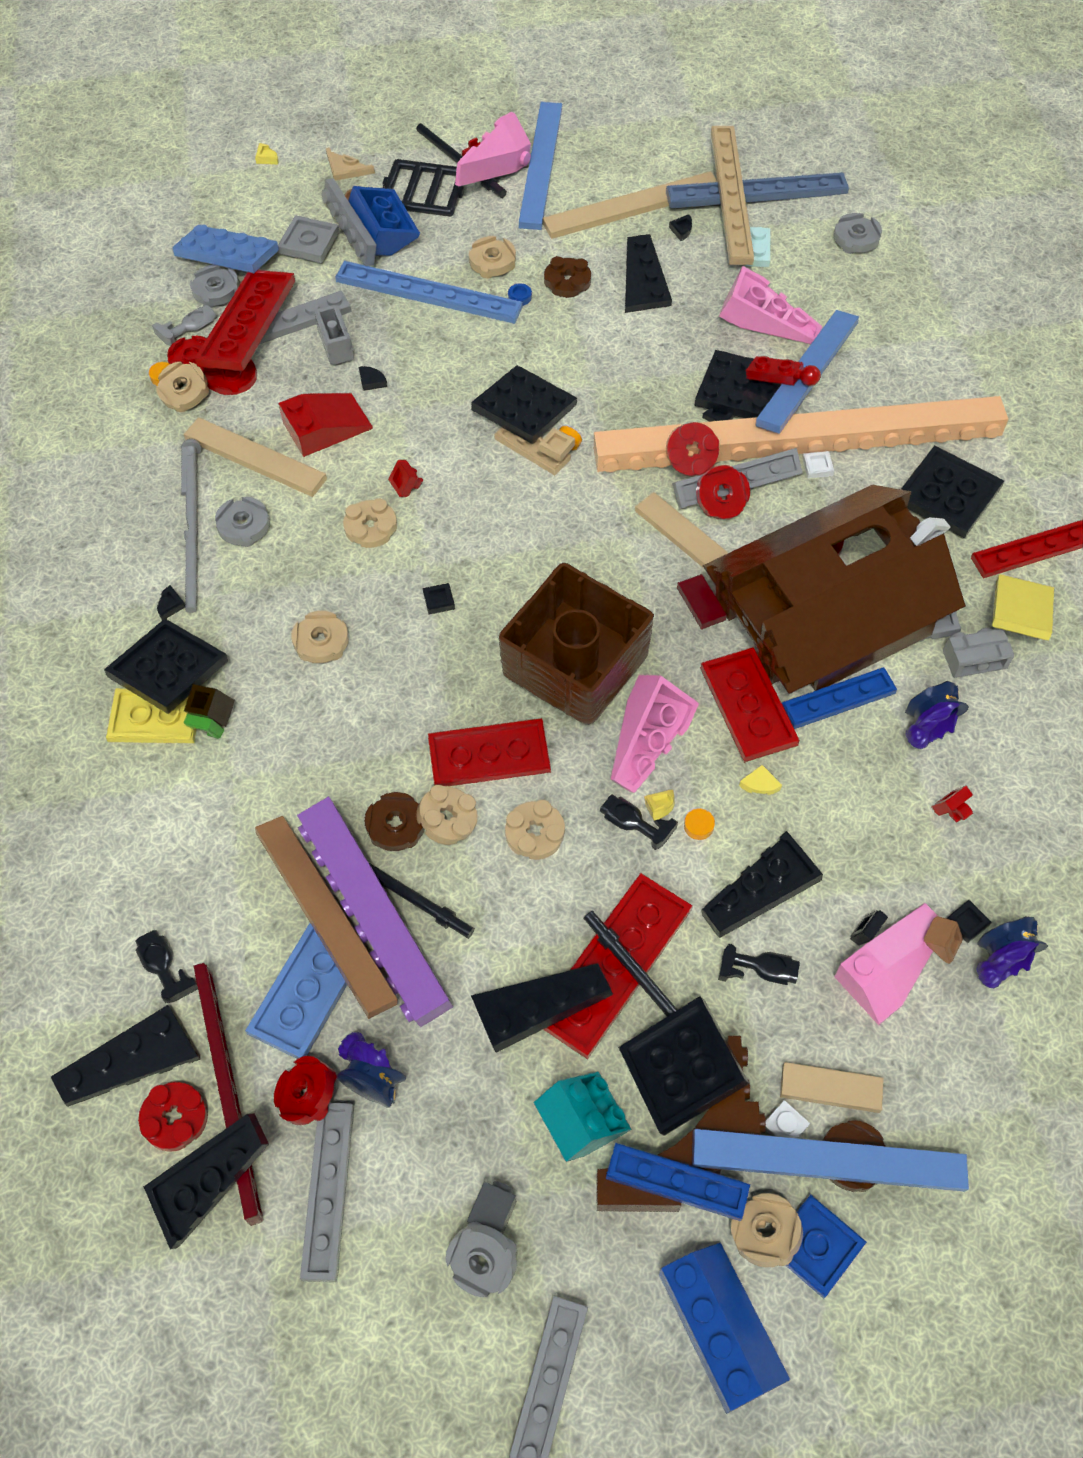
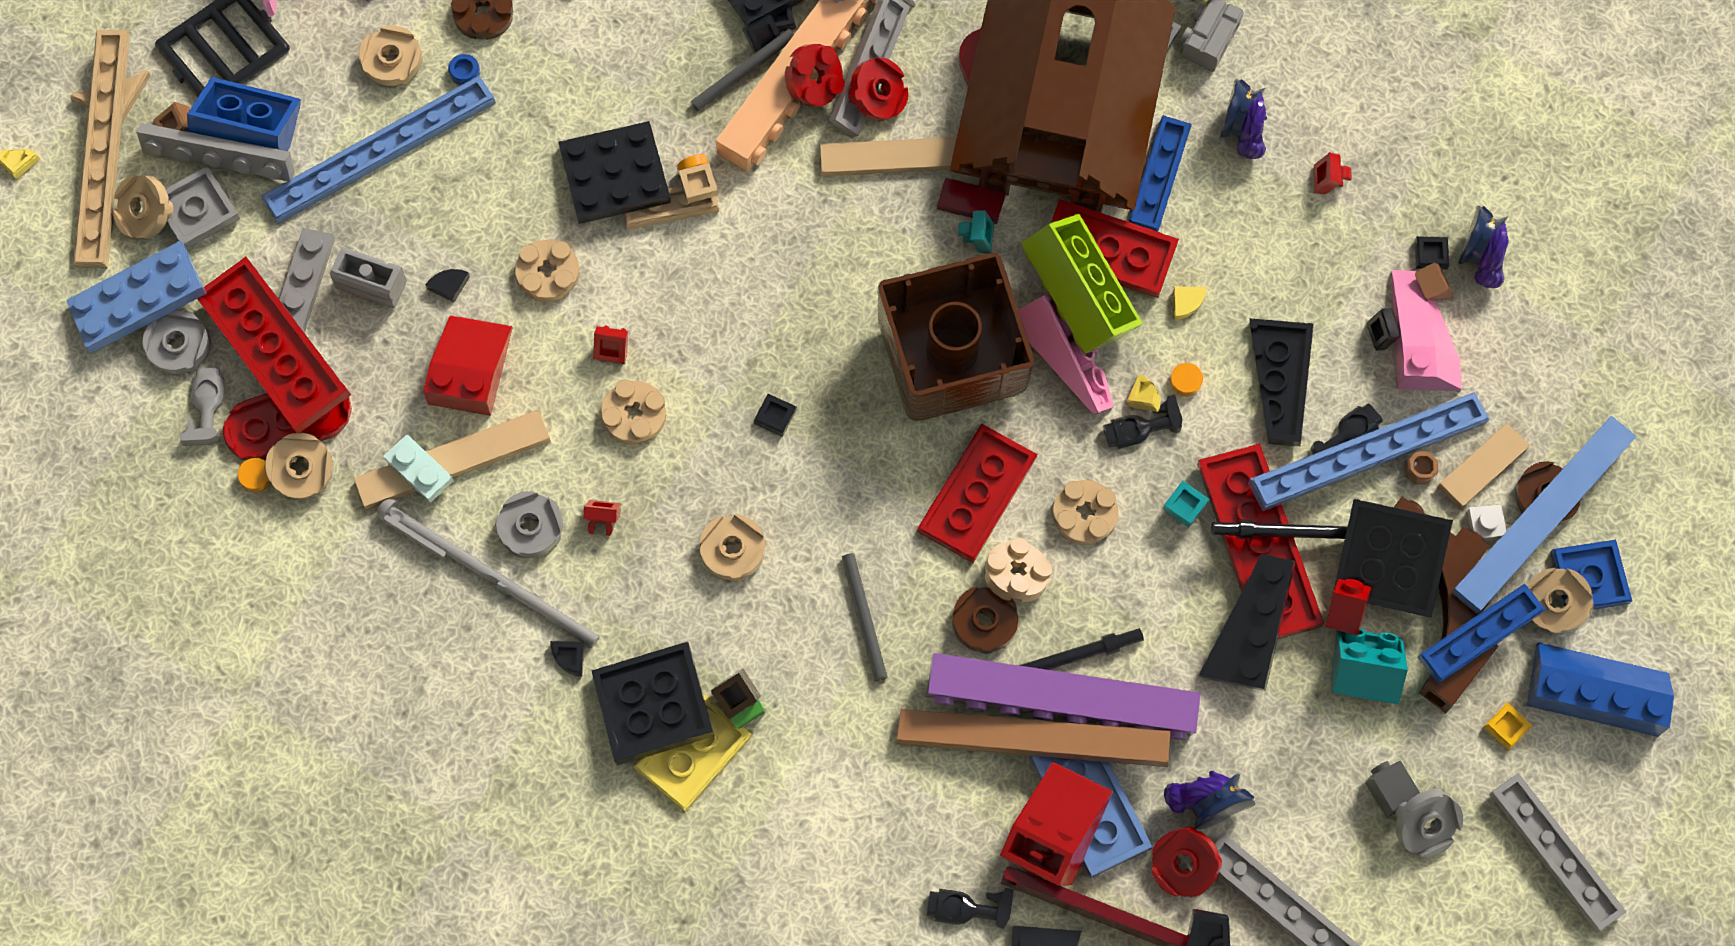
camera: 55 degrees left, 10 degrees up
(229, 440) = (418, 468): none -> light aqua plate
(258, 974) = (1057, 825): none -> red slope
(282, 551) = (602, 512): none -> red tile
(284, 215) = (155, 207): none -> tan plate
(305, 179) = (101, 149): none -> tan tile
(333, 751) = (864, 617): none -> dark grey bar
(426, 405) = (536, 256): none -> tan plate
(596, 887) = (1185, 504): none -> teal tile
(614, 1062) = (1348, 606): none -> red brick
(626, 1270) = (1507, 726): none -> yellow tile
(655, 418) = (742, 70): none -> dark grey bar
(682, 618) = (978, 231): none -> teal tile
(695, 694) = (1081, 283): none -> lime brick
(696, 411) = (761, 32): none -> black tile
(762, 989) = (1368, 451): none -> medium blue tile
(784, 1039) = (1421, 467): none -> medium nougat tile

